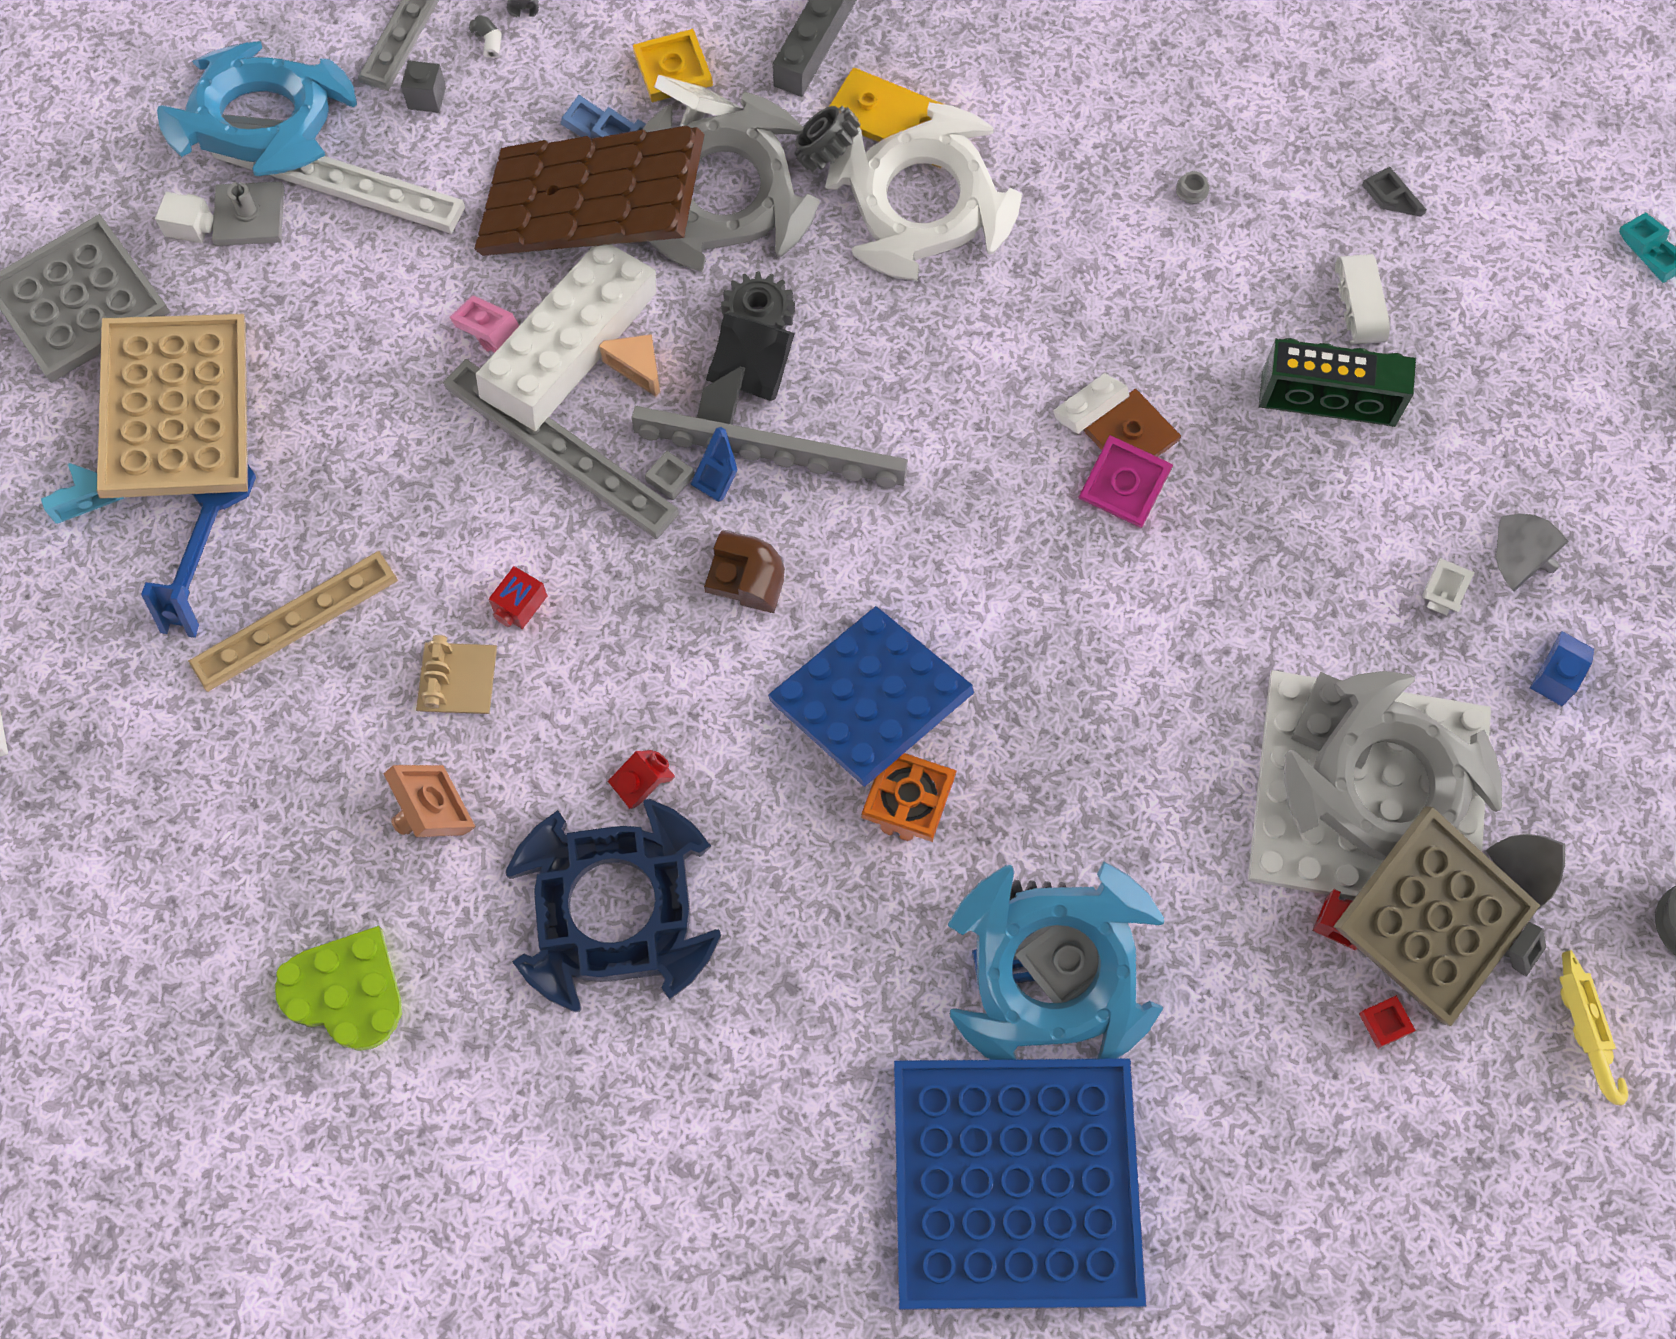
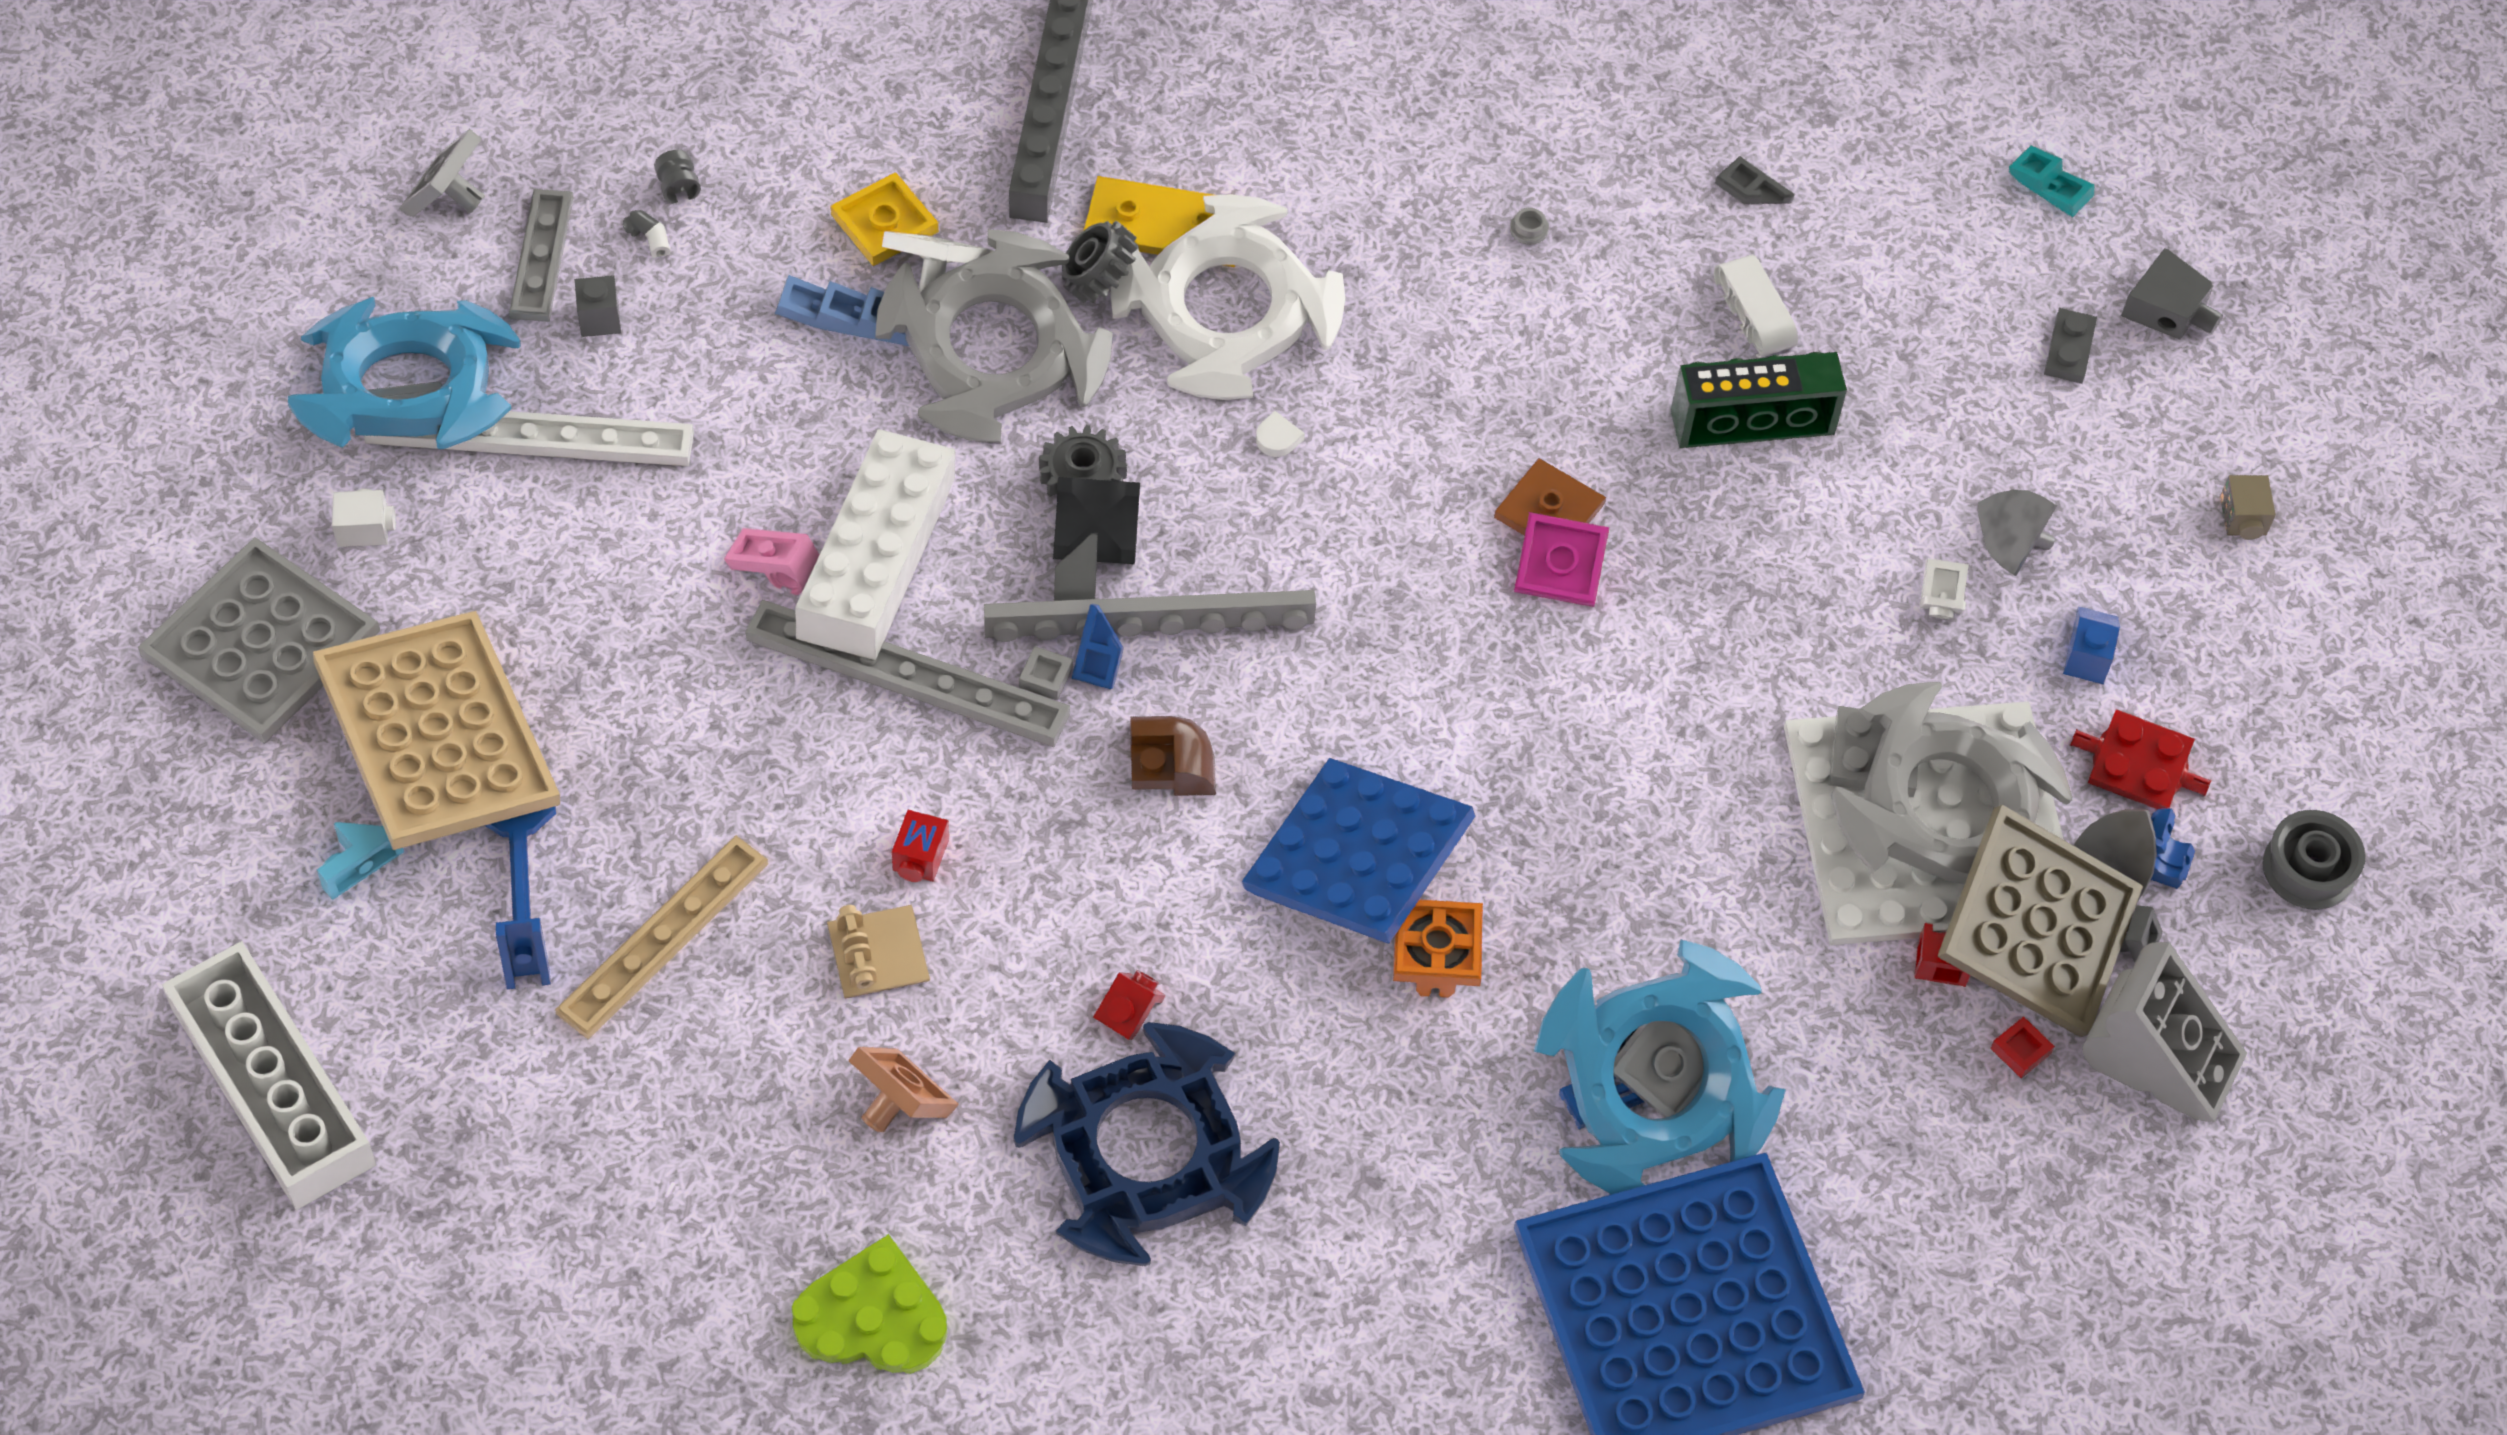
camera: 20 degrees left, 10 degrees down
(248, 213) = (433, 497): light grey tile -> none
(591, 191) = (847, 379): reddish brown piece -> none
(634, 359) = (961, 557): light nougat slope -> none
(926, 318) = (1278, 436): none -> white tile
(1091, 403) = (1495, 485): white plate -> none
(1517, 1053) = (2165, 1036): none -> light grey brick
(1575, 786) = (2141, 760): none -> red plate
(1576, 879) = (2172, 856): none -> blue piece
(1591, 1026) = (2232, 996): light yellow plate -> none
(1626, 396) = (2070, 345): none -> dark grey plate

